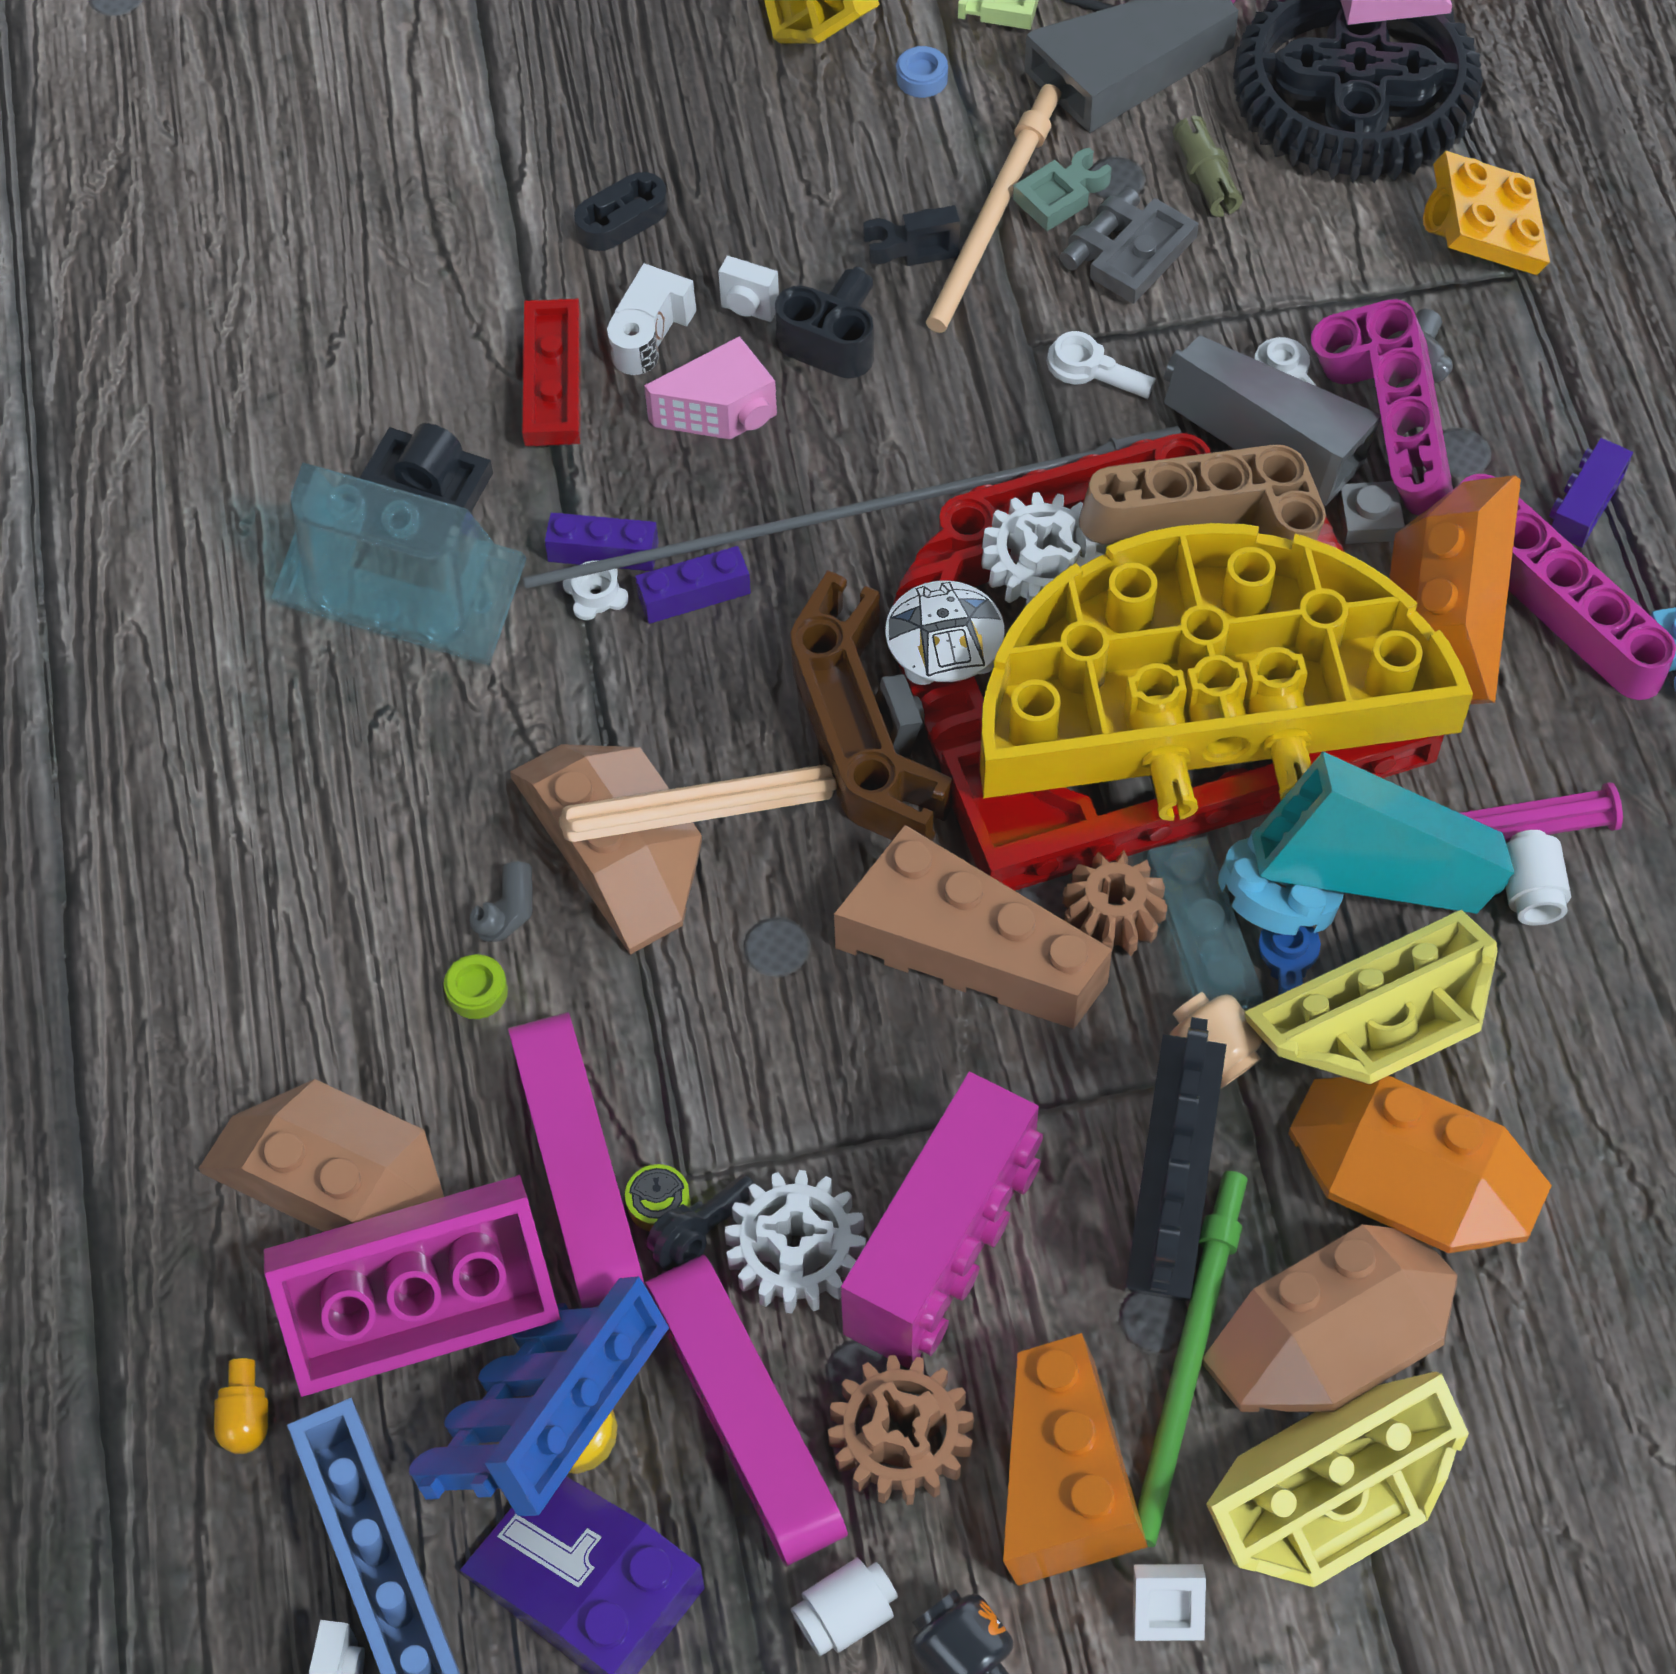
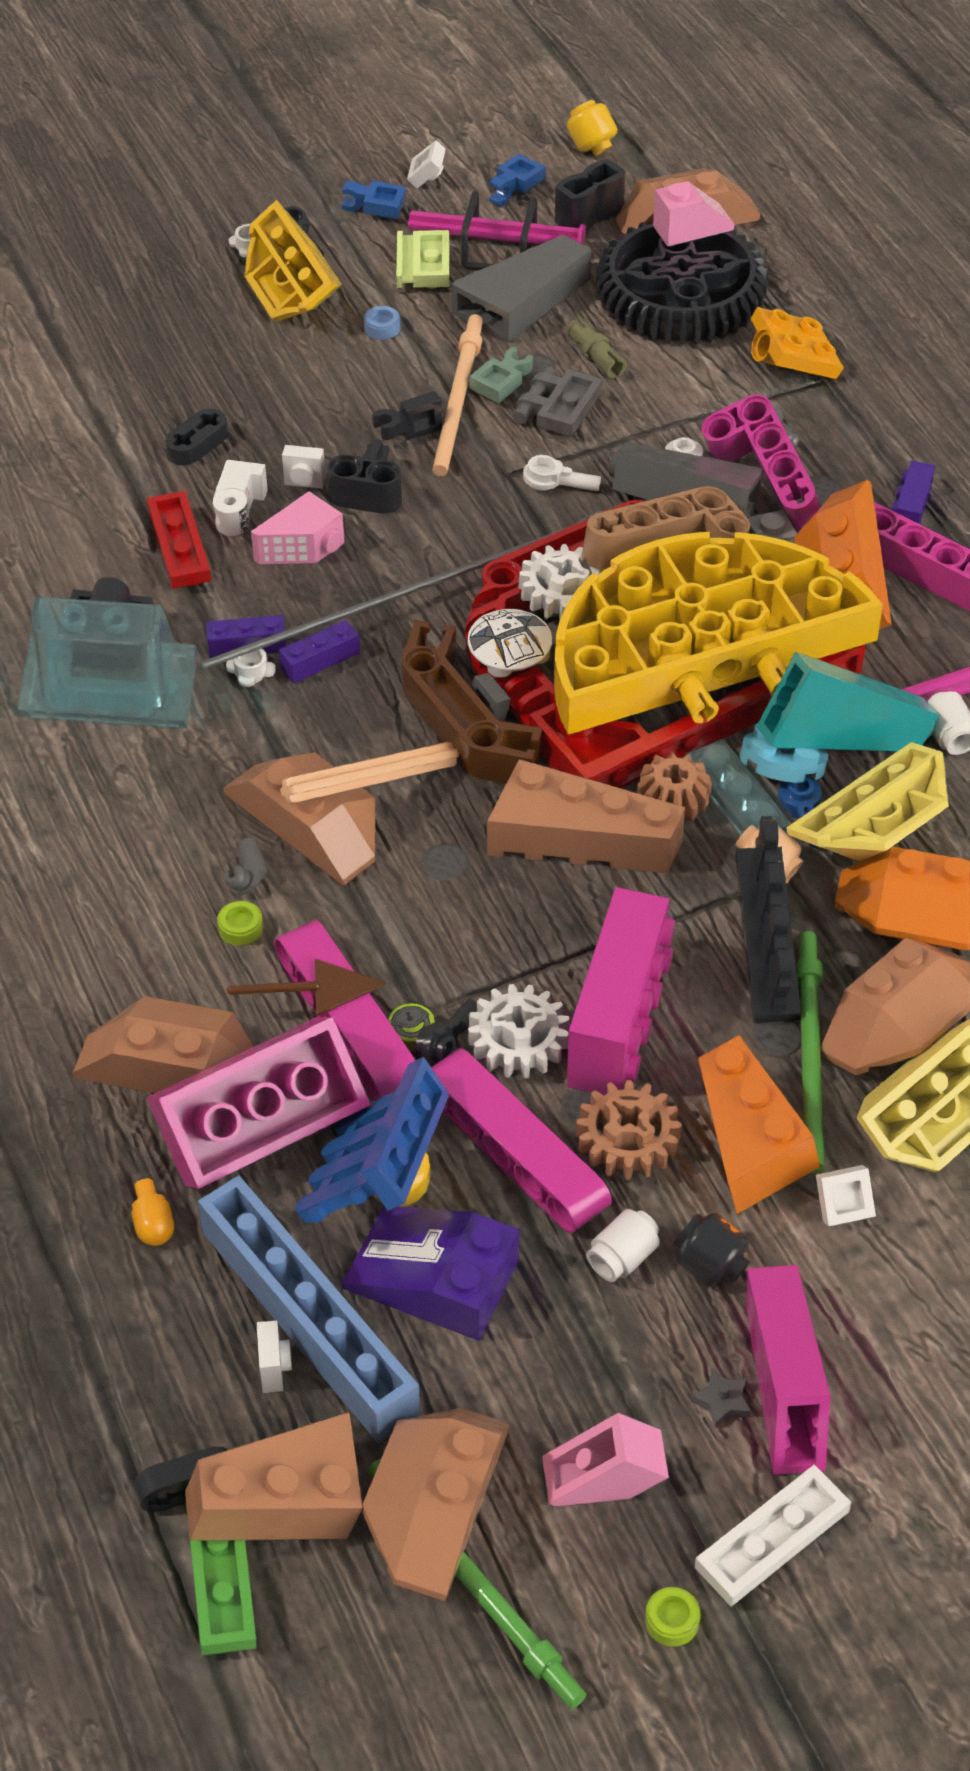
camera: 15 degrees left, 10 degrees down
(561, 1125) = (332, 986): none -> reddish brown piece

